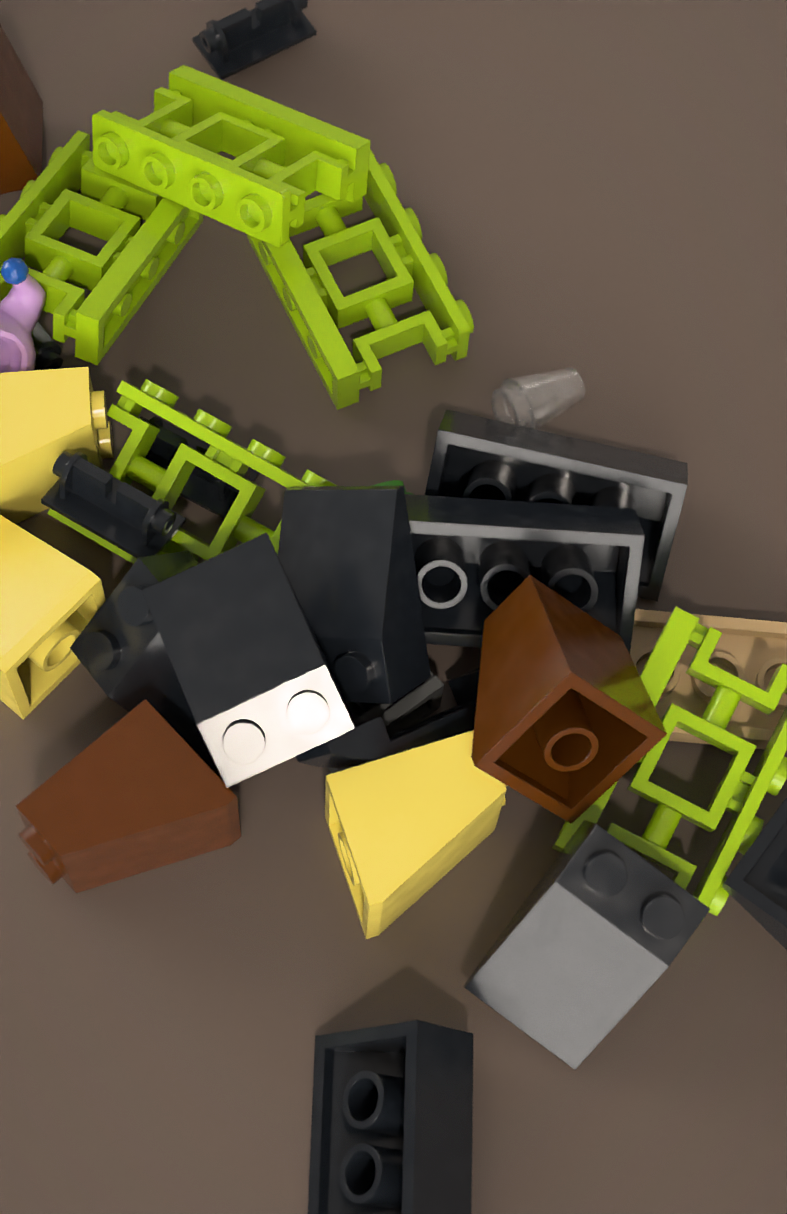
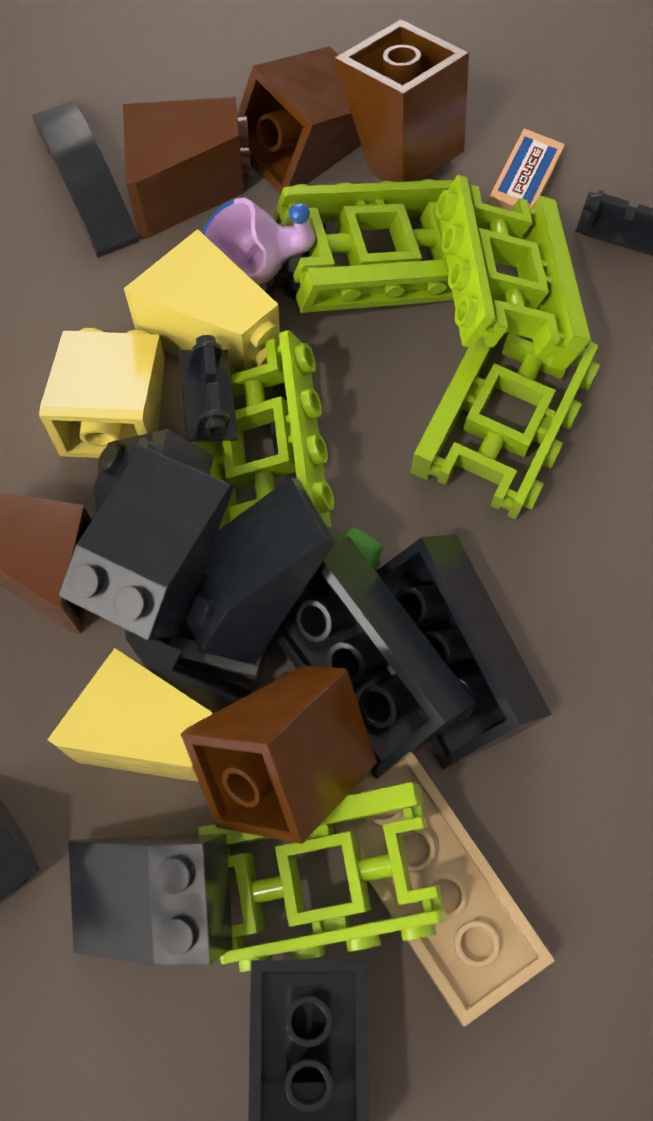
camera: 55 degrees right, 5 degrees up
(117, 67) = (526, 170): none -> tile
(537, 397) = (517, 584): clear cone -> none

